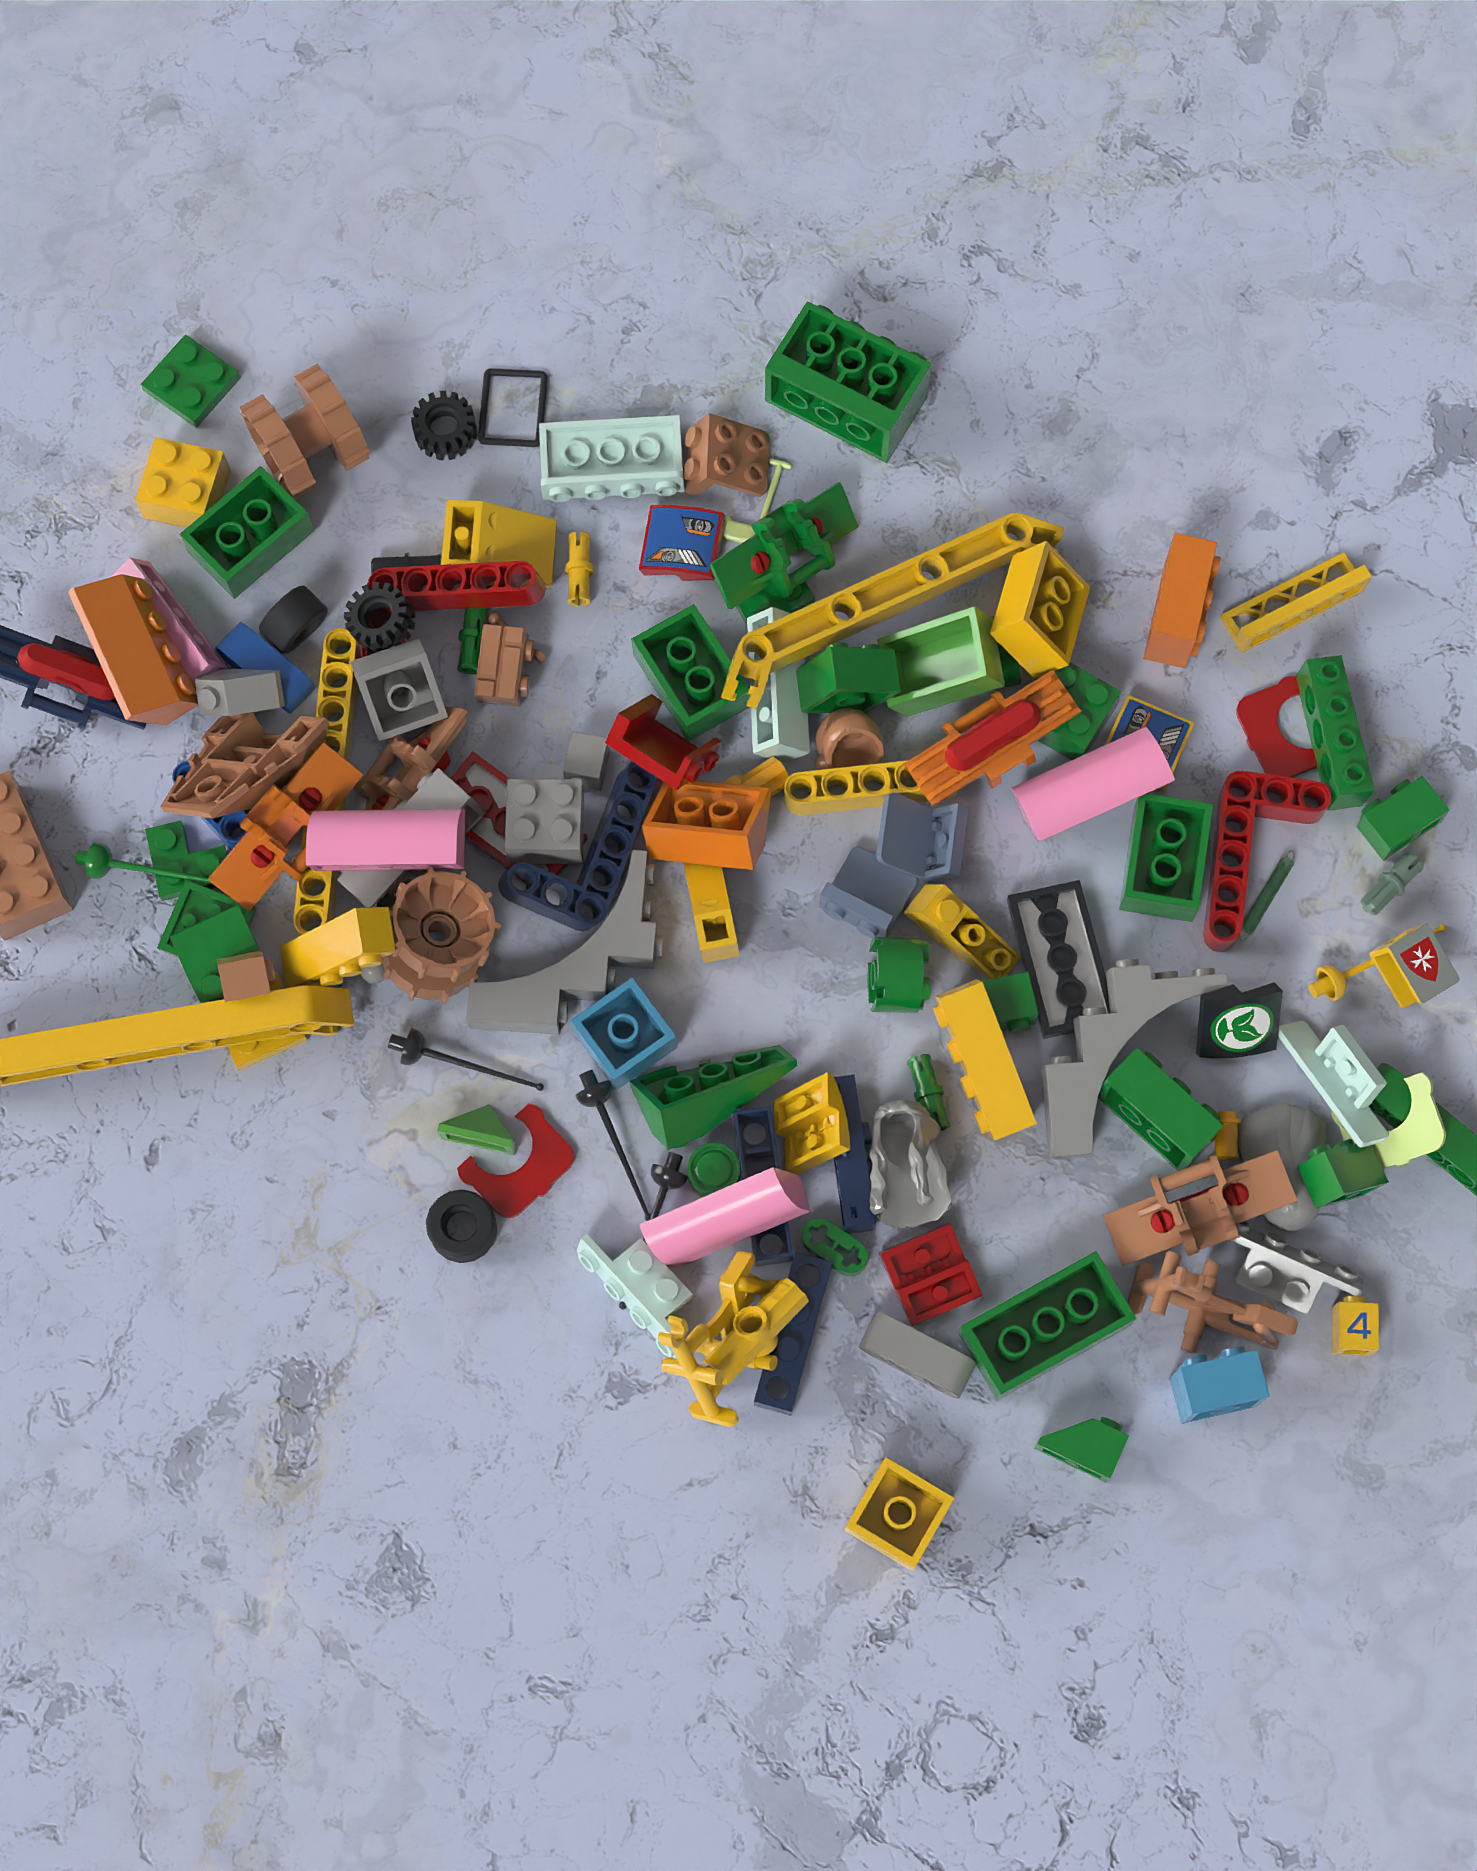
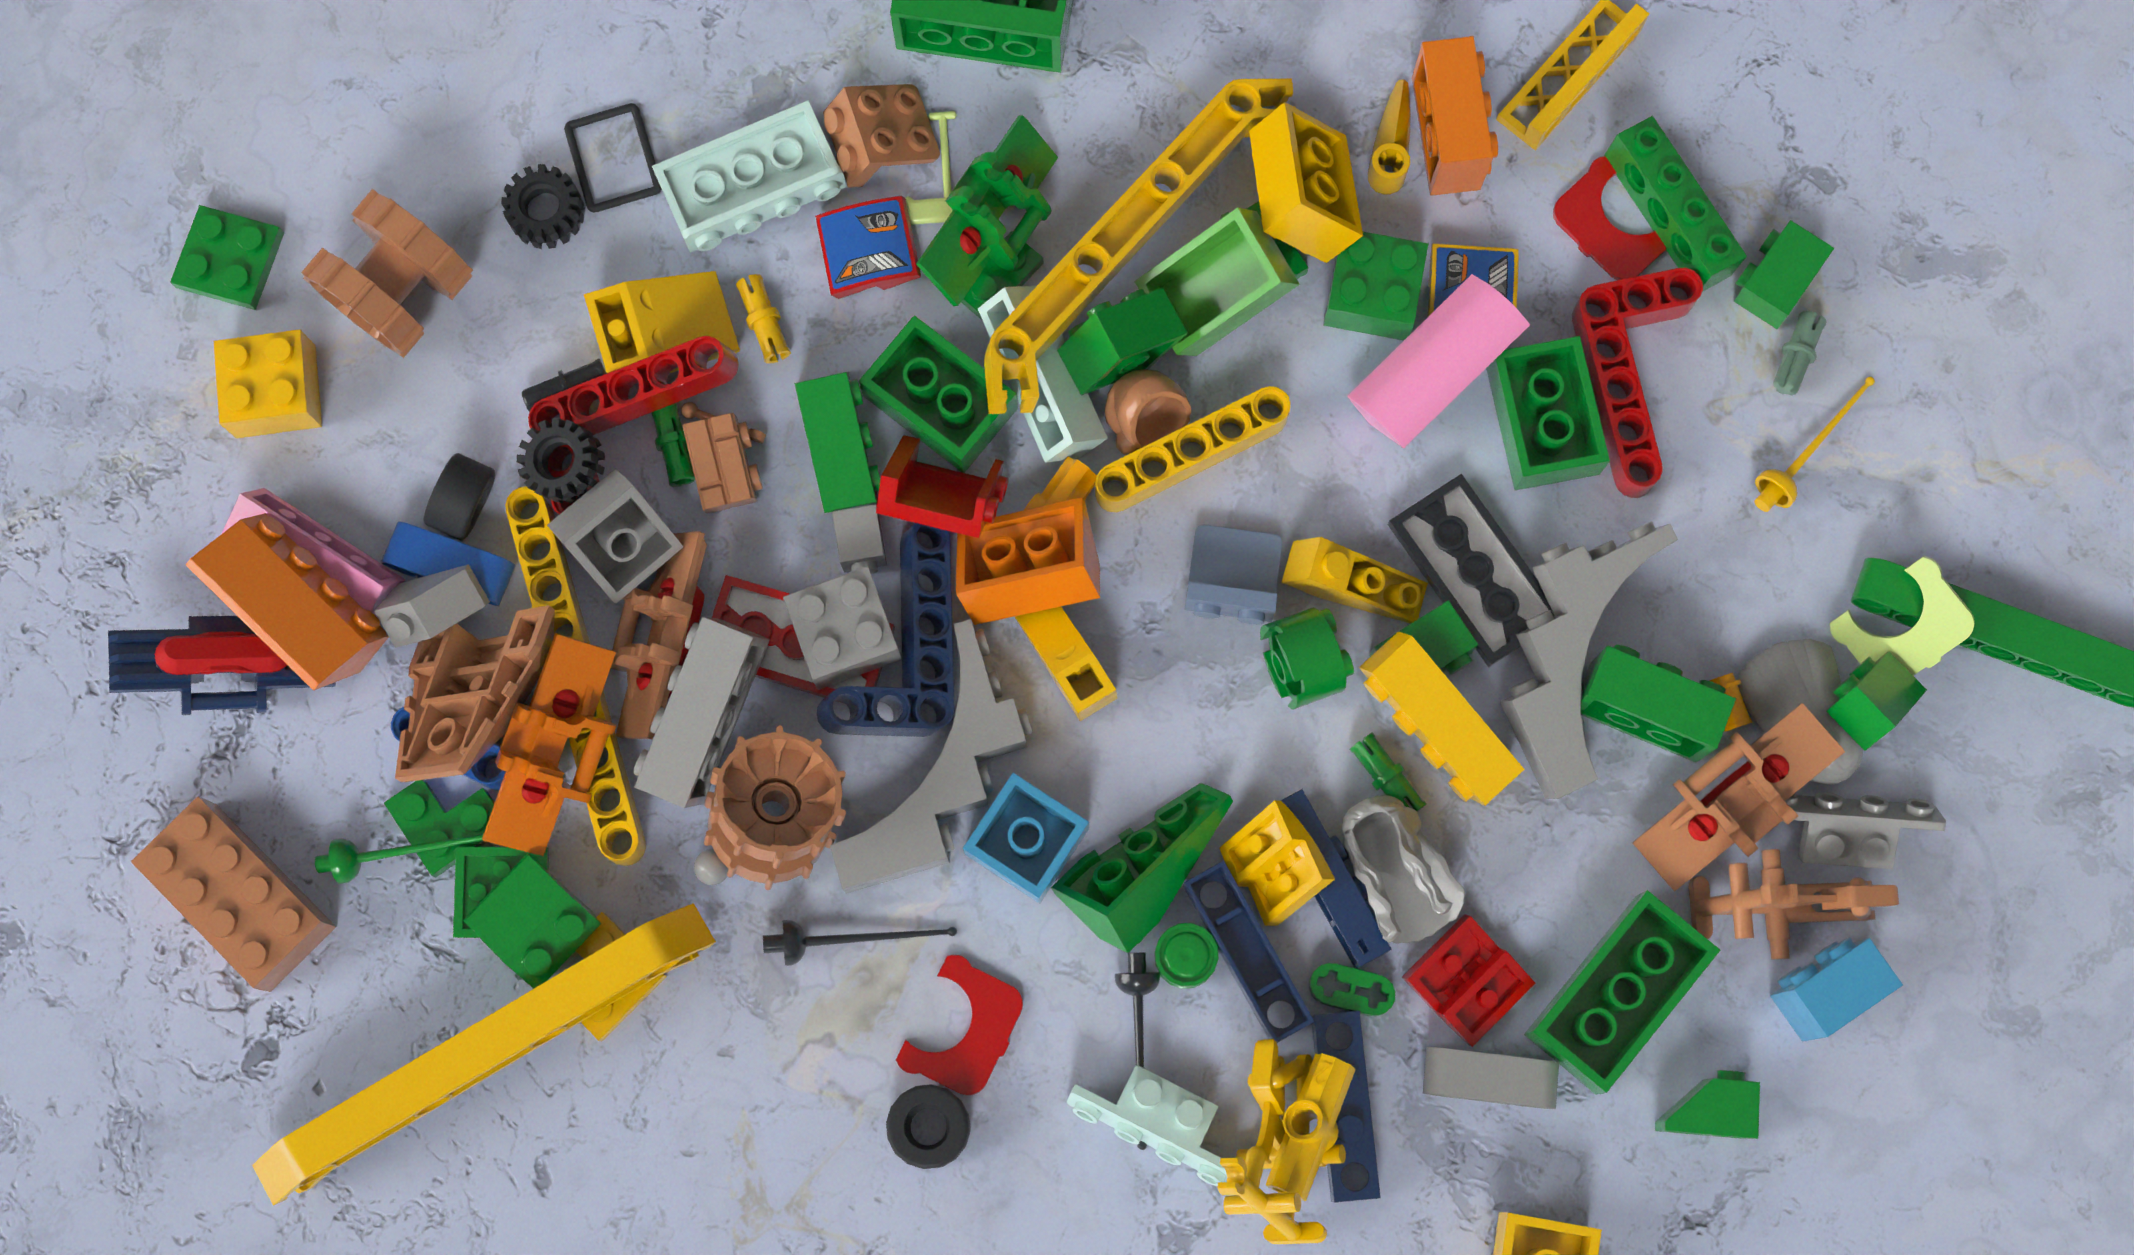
camera: 20 degrees left, 5 degrees up
(245, 975) = (572, 938): nougat brick -> none
(247, 532) = (365, 413): green brick -> none
(338, 948) = (668, 869): yellow brick -> none
(386, 840) = (674, 721): bright pink brick -> none
(478, 1129) = (903, 1006): bright green slope -> none
(596, 1095) = (1021, 920): black sword -> none
(598, 678) = (838, 441): none -> green wedge
(726, 1217) = (1227, 1009): bright pink brick -> none
(922, 838) = (1272, 490): sand blue bracket -> none
(995, 739) = (1313, 355): orange piece -> none
(1128, 607) = (1392, 143): none -> yellow piece
(1238, 1022) = (1699, 572): slope -> none
(1270, 896) = (1672, 417): green piece -> none
(1340, 1075) = (1831, 590): light aqua bracket -> none
(1355, 1327) = (1950, 864): yellow brick -> none
(1414, 966) = (1863, 437): piece -> none

